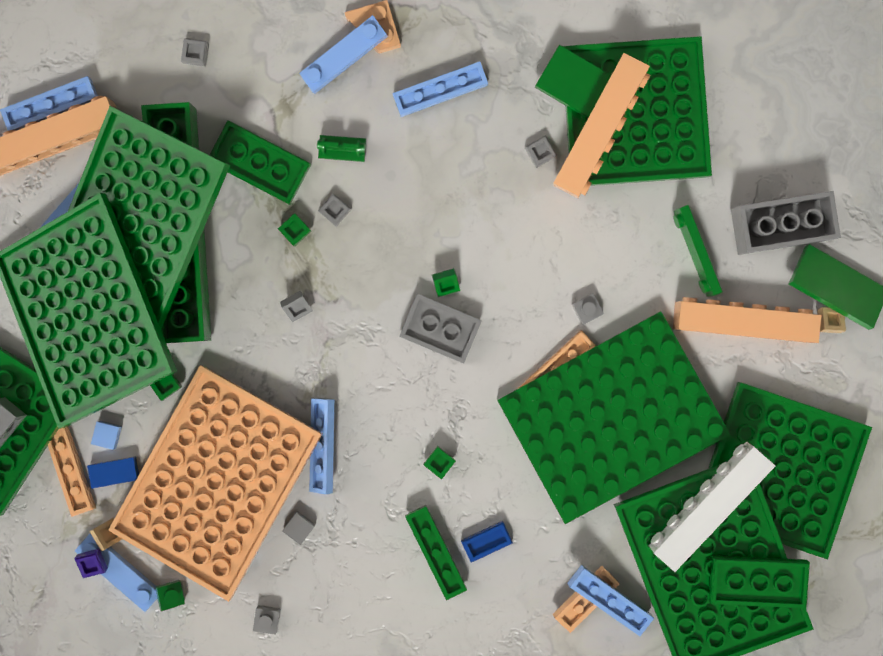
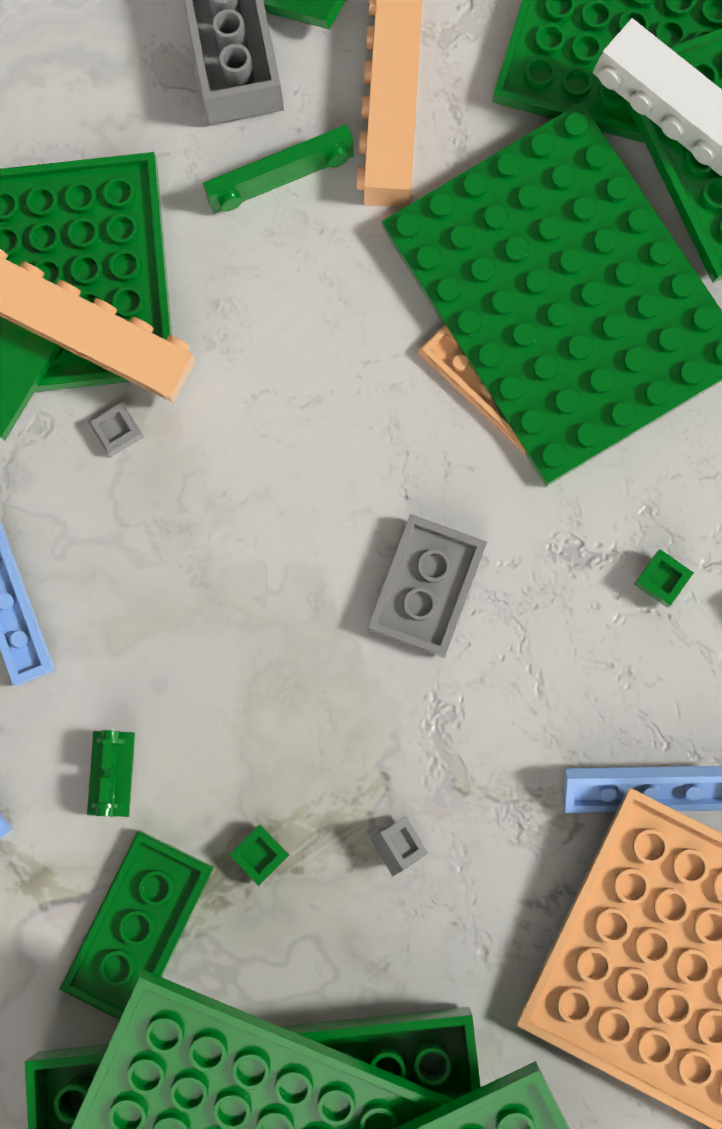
camera: 85 degrees left, 10 degrees down
(166, 387) = (564, 1089): green plate -> none
(334, 210) = (222, 783): light grey tile -> none
(446, 282) = (346, 578): green plate -> none
(587, 309) = (382, 341): light grey plate -> none

